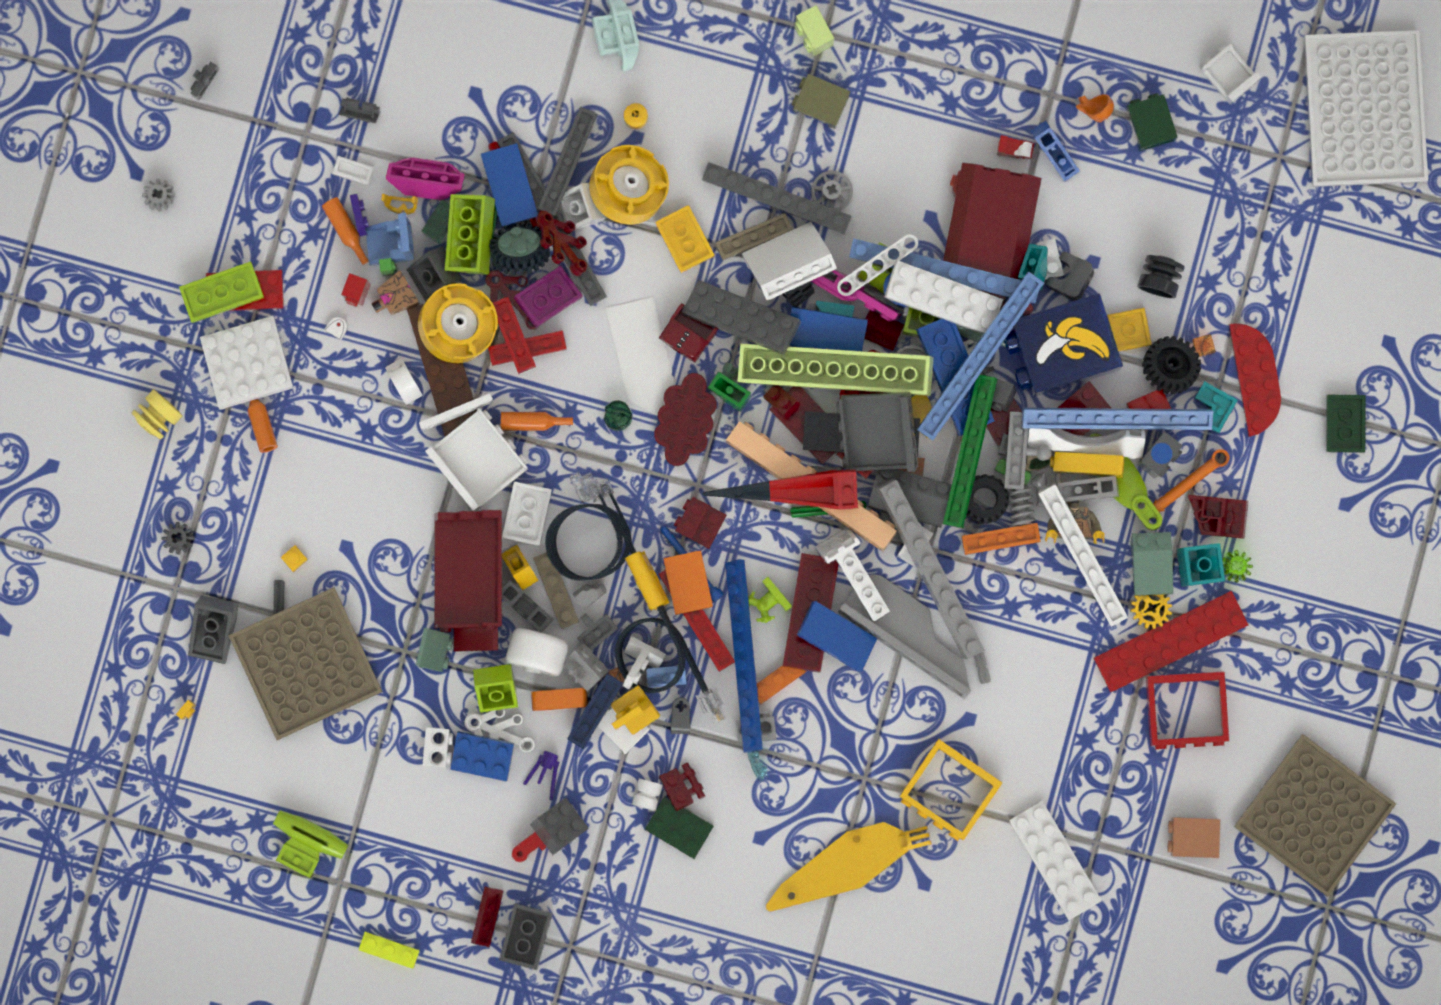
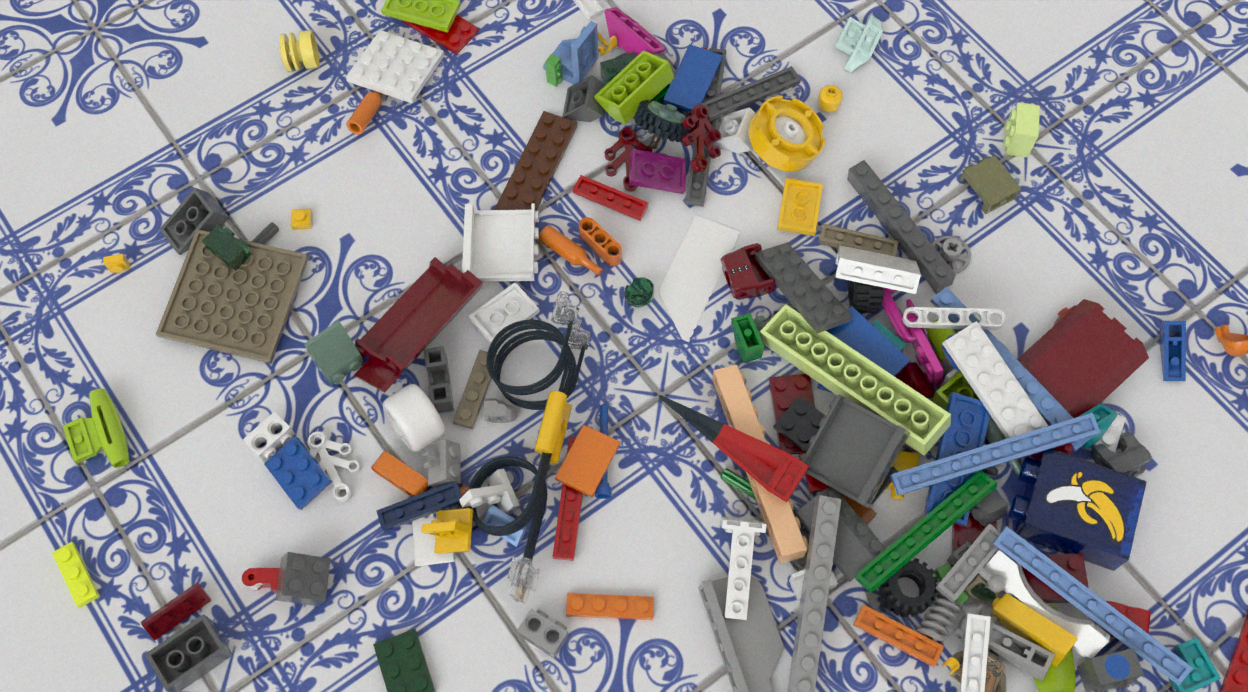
camera: 35 degrees right, 20 degrees down
(176, 531) = (233, 143): dark grey gear -> none
(271, 632) = (227, 247): none -> clear green brick
(337, 327) = (482, 90): white tile -> none
(344, 227) = (547, 29): orange piece -> none
(355, 290) = (517, 68): red brick -> none
(358, 207) = (564, 26): dark purple plate -> none
(395, 295) = (543, 95): medium nougat torso -> none
(403, 381) = (495, 154): white brick -> none
(456, 412) = (514, 198): white tile -> none
(457, 341) = (571, 138): yellow piece -> none
(495, 688) = (356, 422): lime brick -> none
(513, 335) = (606, 177): red plate -> none
(519, 567) = (461, 349): yellow slope -> none
(547, 761) = (346, 519): dark purple plant -> none
(558, 400) = (596, 234): none -> orange beam
(597, 631) = (479, 445): dark grey plate -> none
(647, 794) = (401, 613): white wheel -> none
(676, 788) = (430, 628): dark red plate -> none
(680, 720) = (486, 571): dark grey piece -> none
(685, 419) = (692, 336): dark red plate -> none
(699, 522) = (638, 422): dark red plate -> none
(744, 656) = (581, 561): blue plate -> none
(758, 768) = (517, 669): clear light blue slope -> none
(768, 601) = (648, 529): lime piece -> none
(781, 400) = (785, 375): dark red plate -> none
(814, 583) = (672, 568): dark red plate -> none
(837, 636) = (680, 604): blue tile -> none
(1015, 148) = (1136, 324): red leg -> none
(1130, 329) = (1151, 543): yellow tile -> none
(1159, 280) = (1212, 513): black wheel -> none
(1180, 355) = (1173, 598): black wheel -> none
(1204, 345) = (1214, 605): clear orange plate -> none

